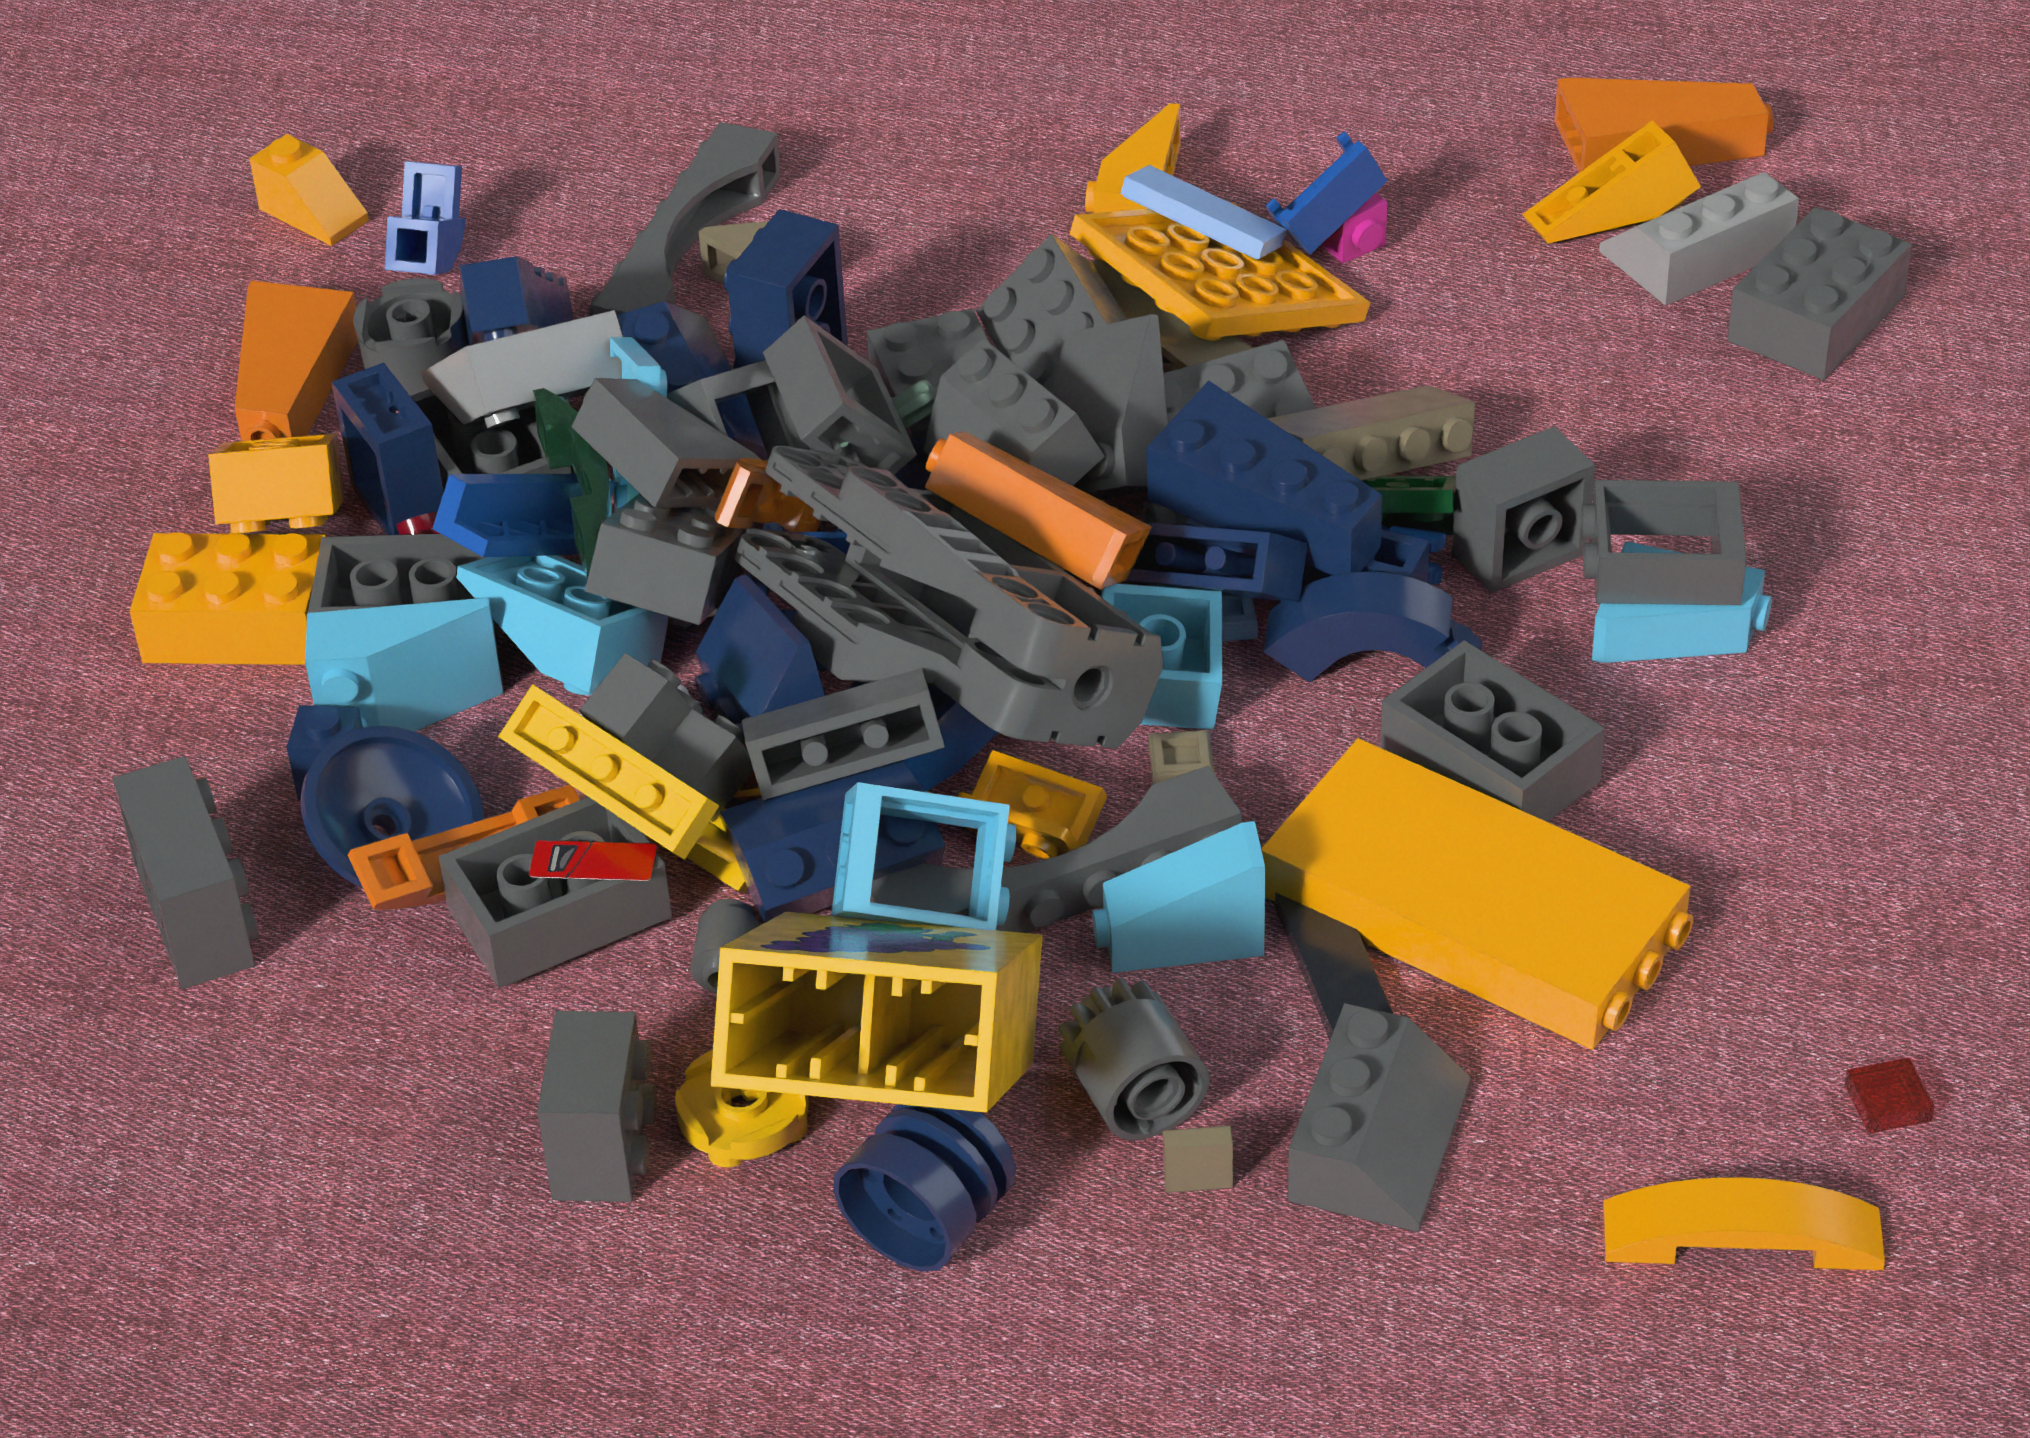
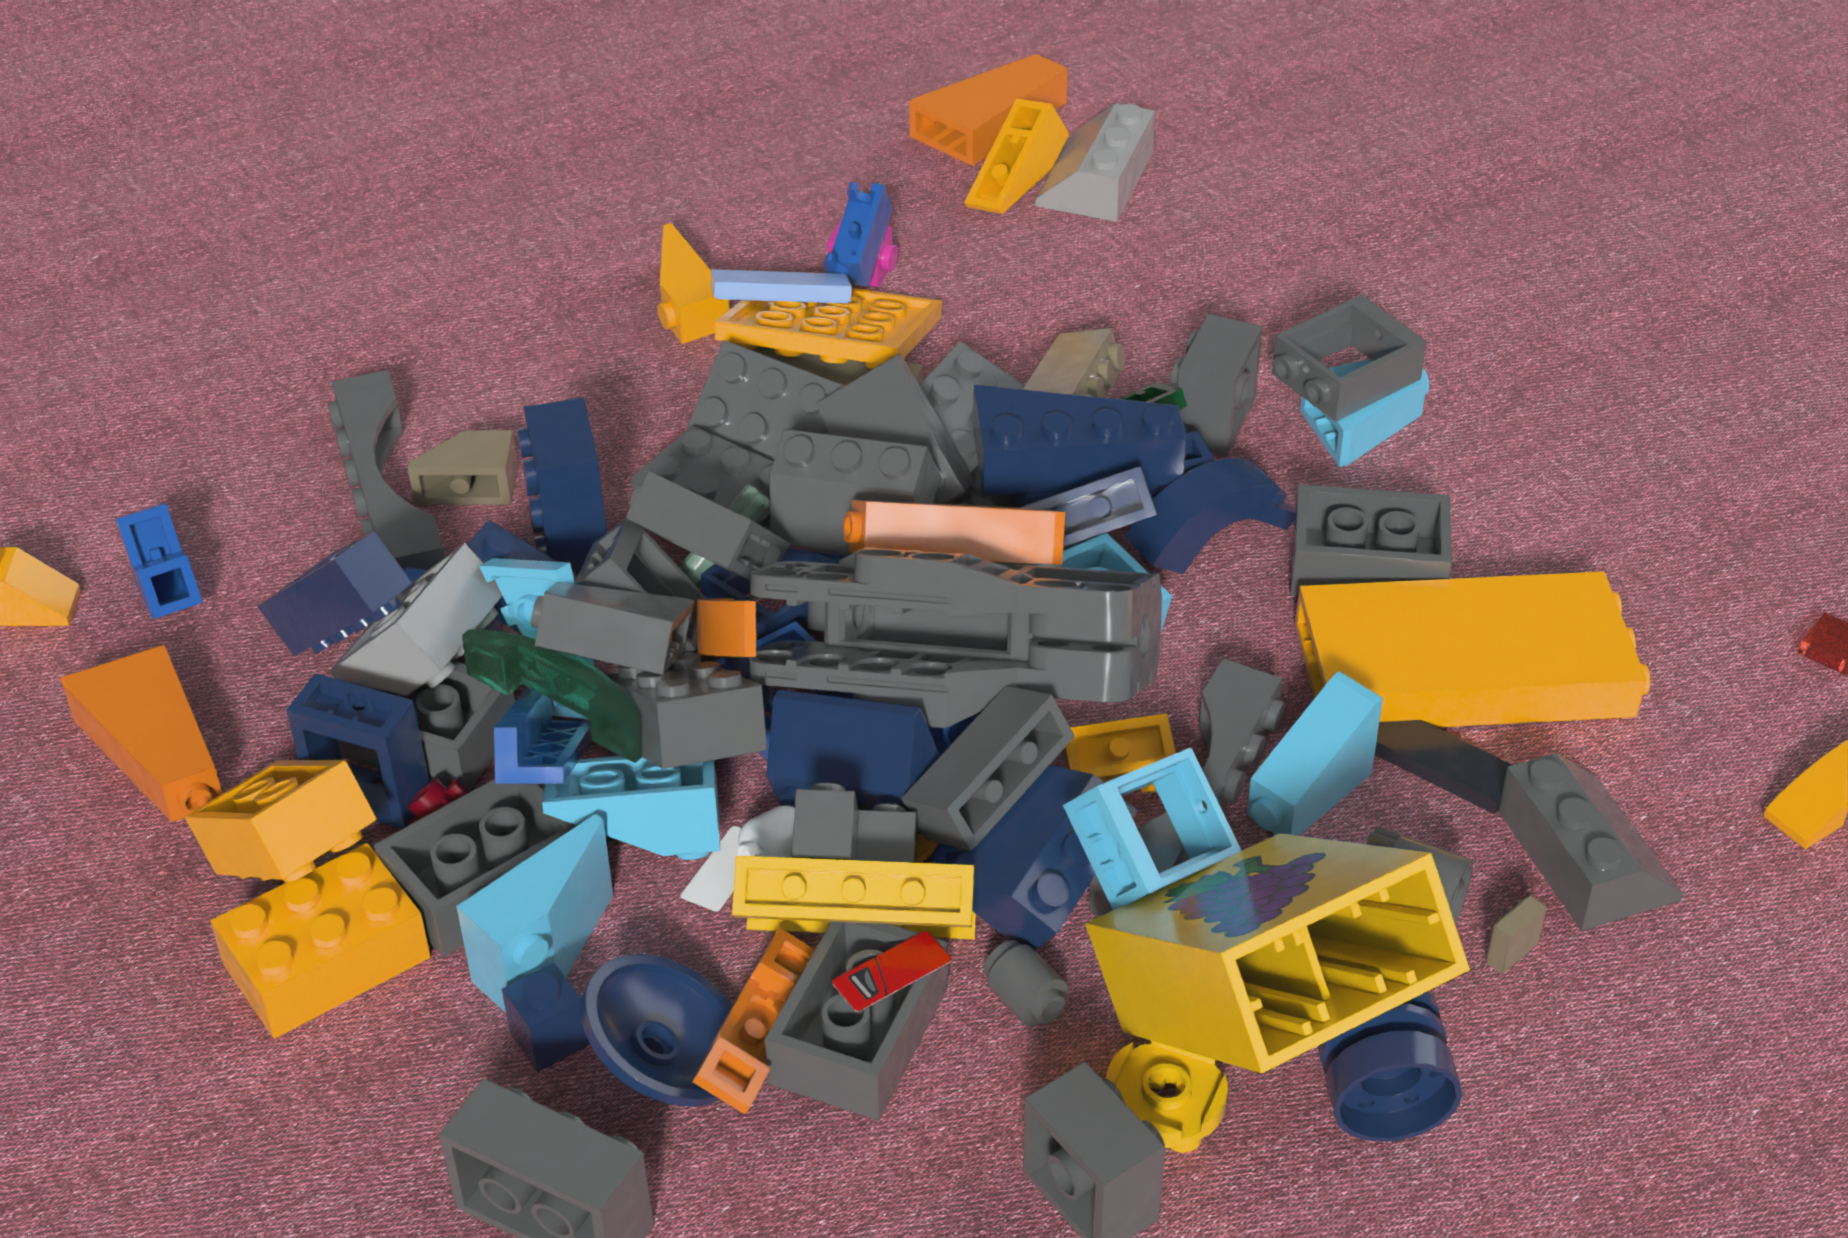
camera: 40 degrees left, 0 degrees up
(410, 329) = (253, 658): dark grey brick -> none
(1178, 753) = (1176, 672): dark tan tile -> none
(1819, 292) = (1218, 167): dark grey brick -> none

